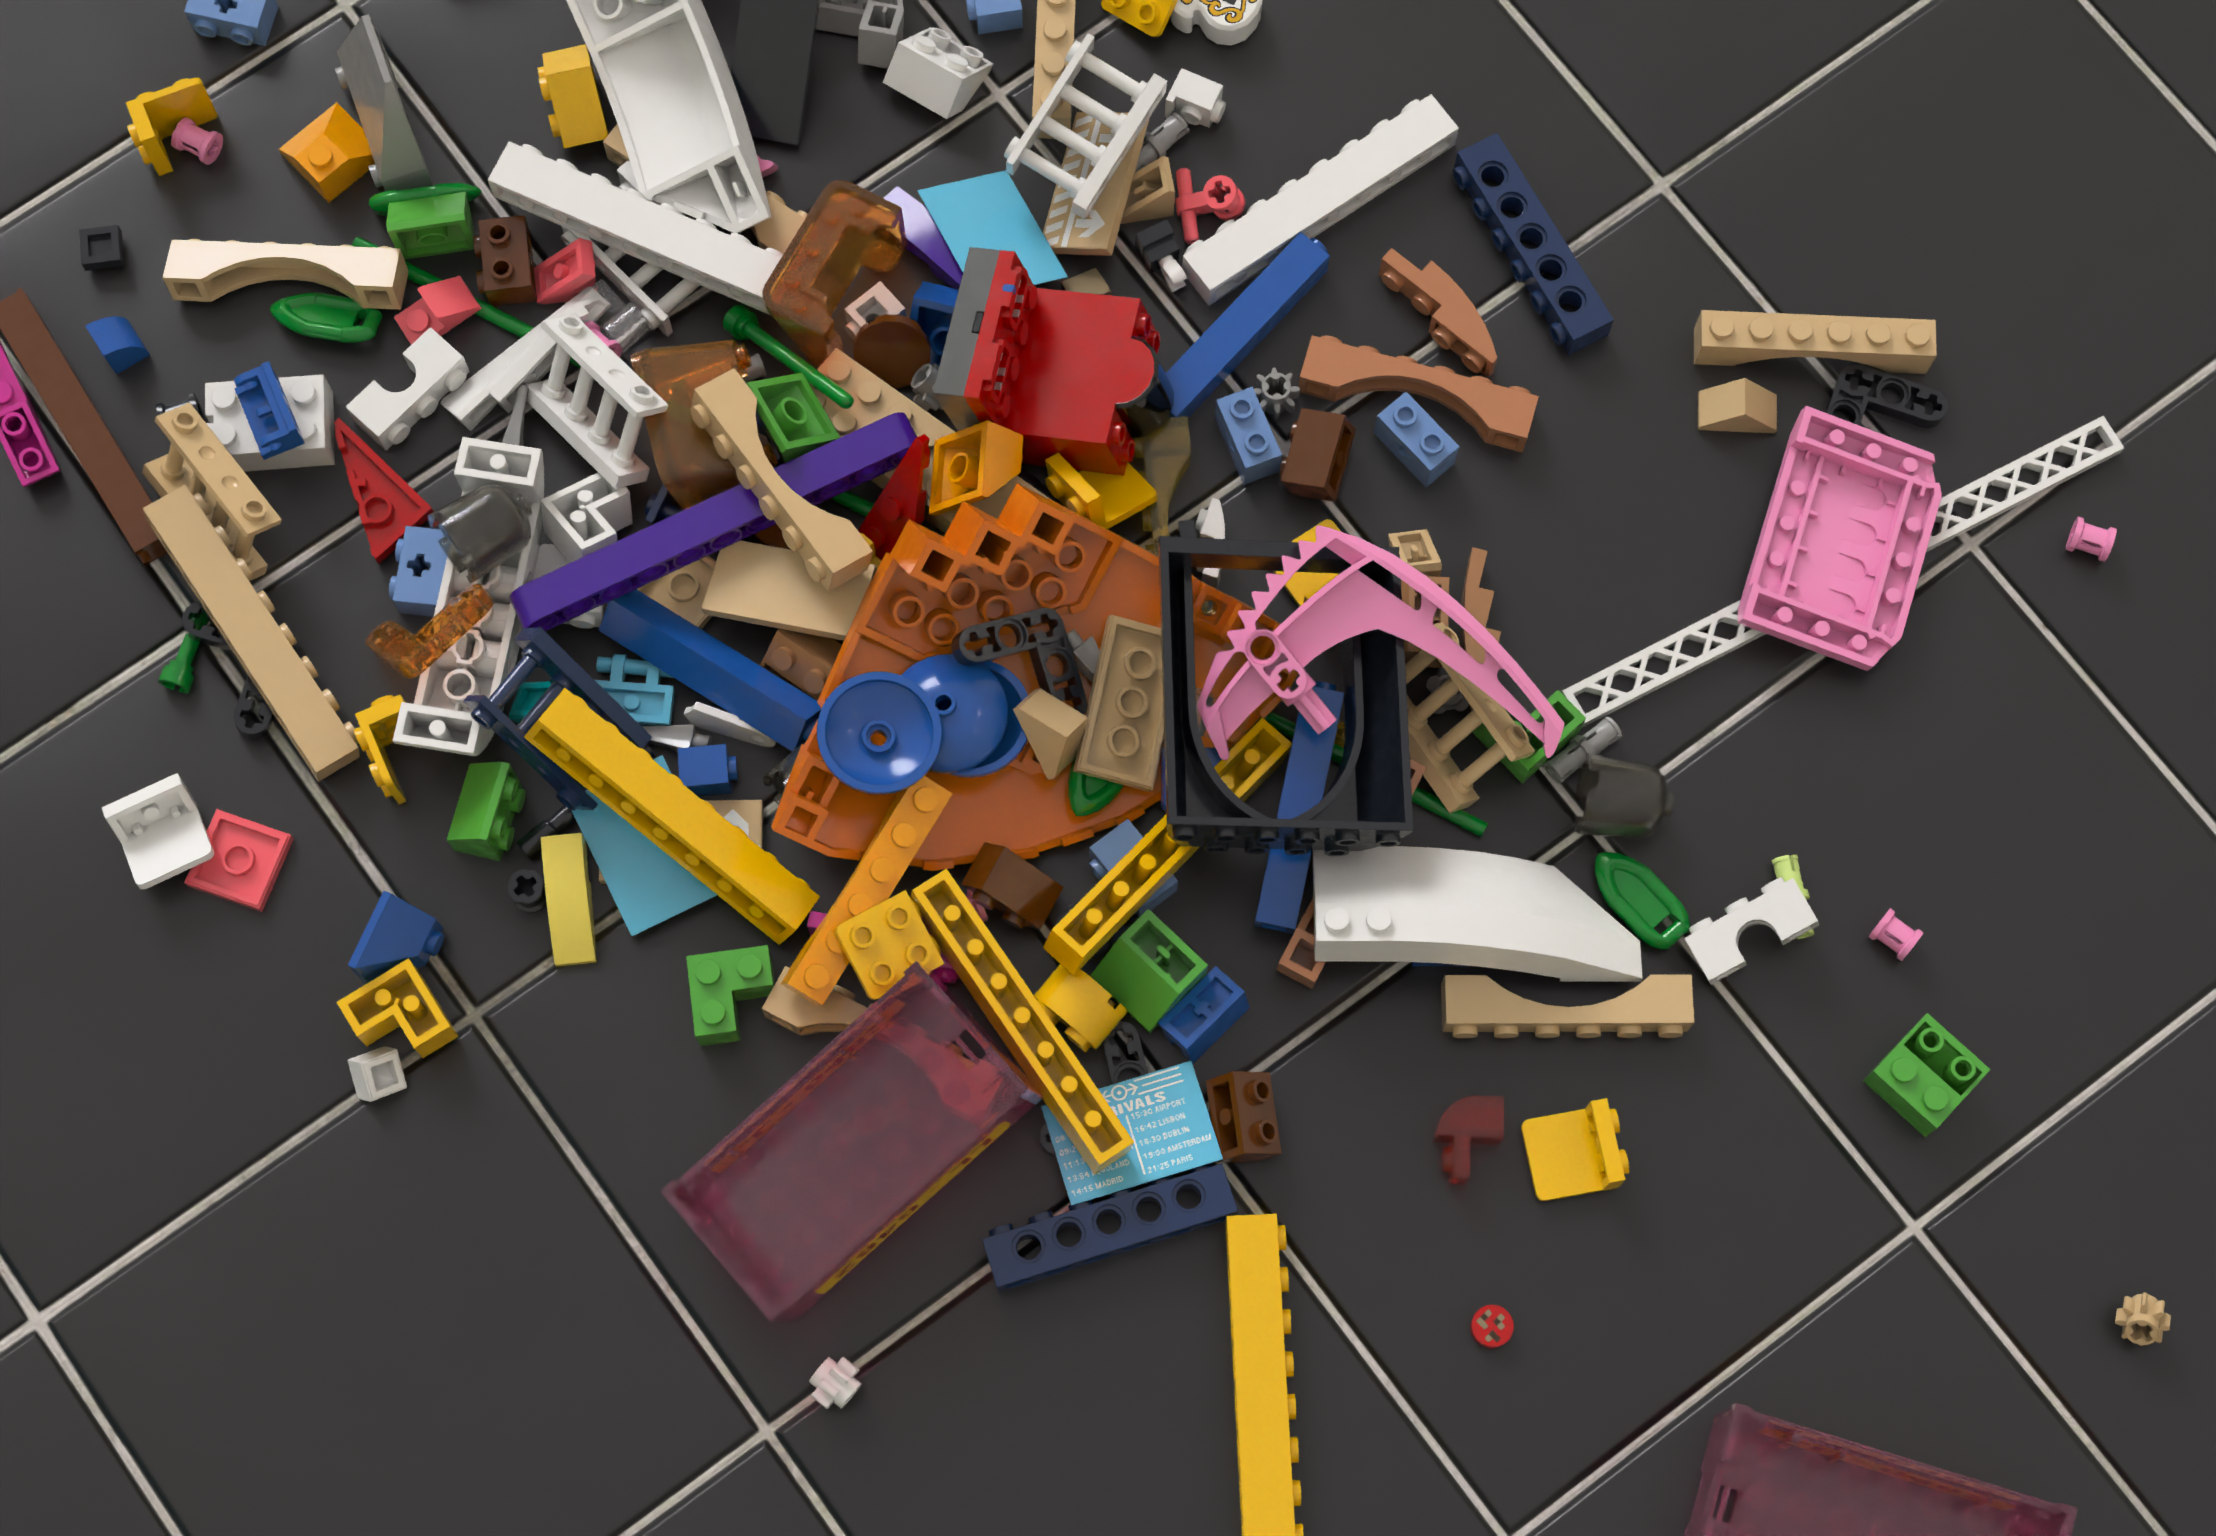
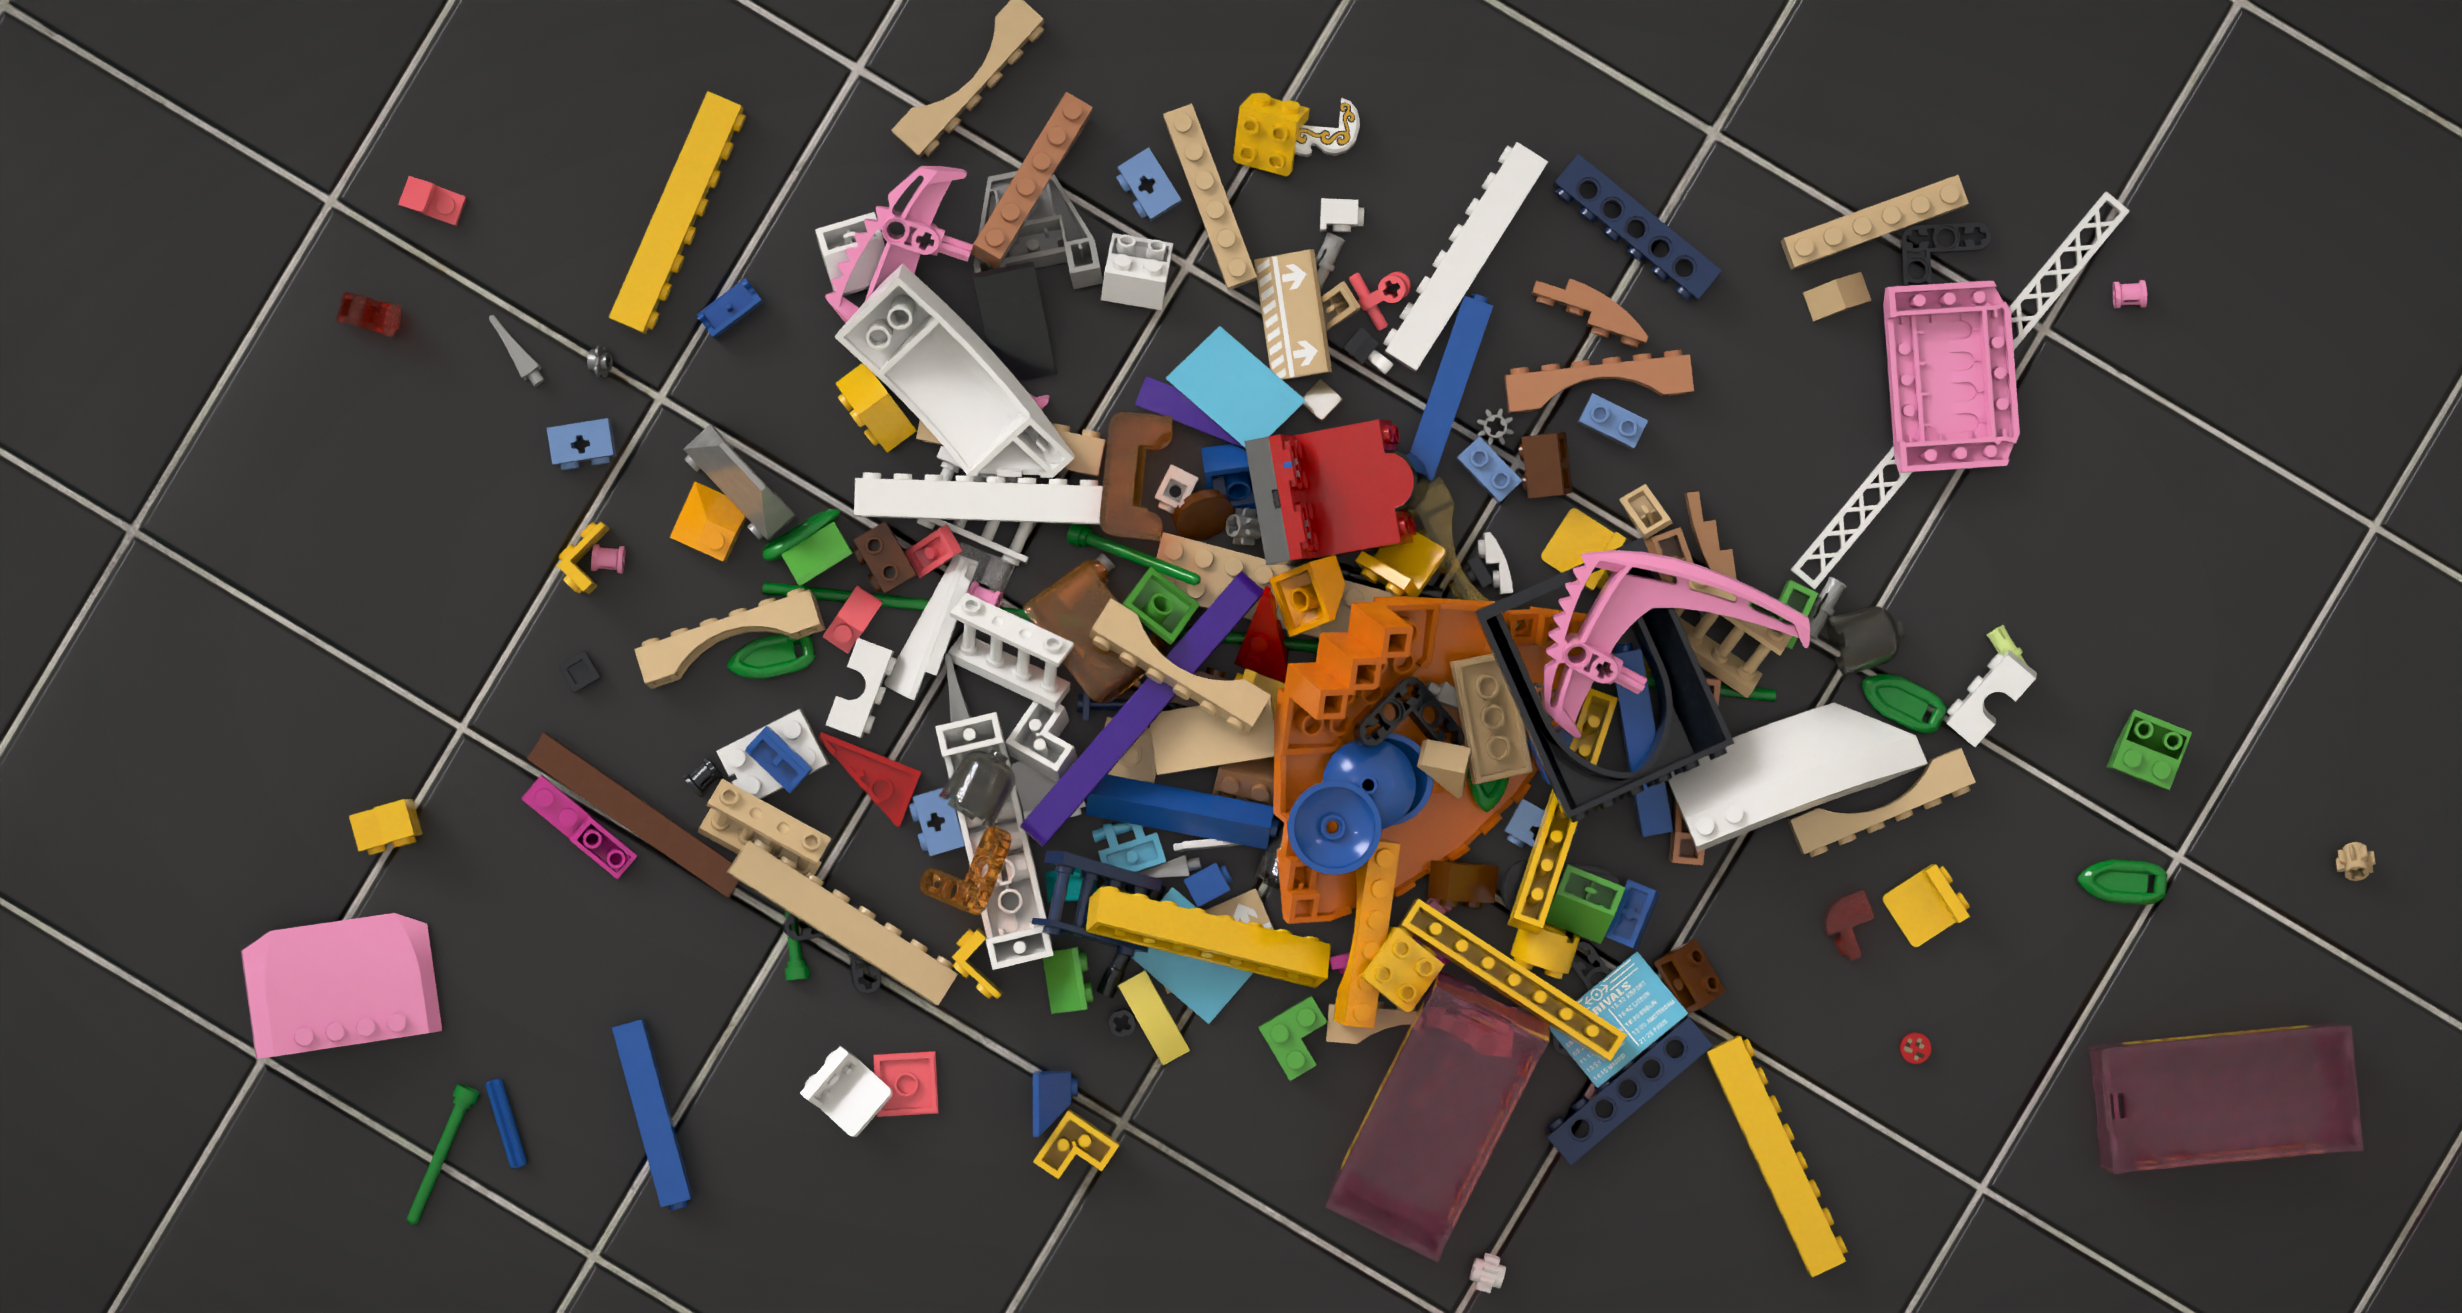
camera: 20 degrees left, 15 degrees up
(118, 342) = (630, 740): blue brick -> none
(377, 1073) = (1076, 1193): white slope -> none
(1123, 127) = (1298, 304): white fence -> none
(1835, 1227) = (2124, 881): none -> green piece
(1896, 934) = (2092, 654): bright pink bush -> none

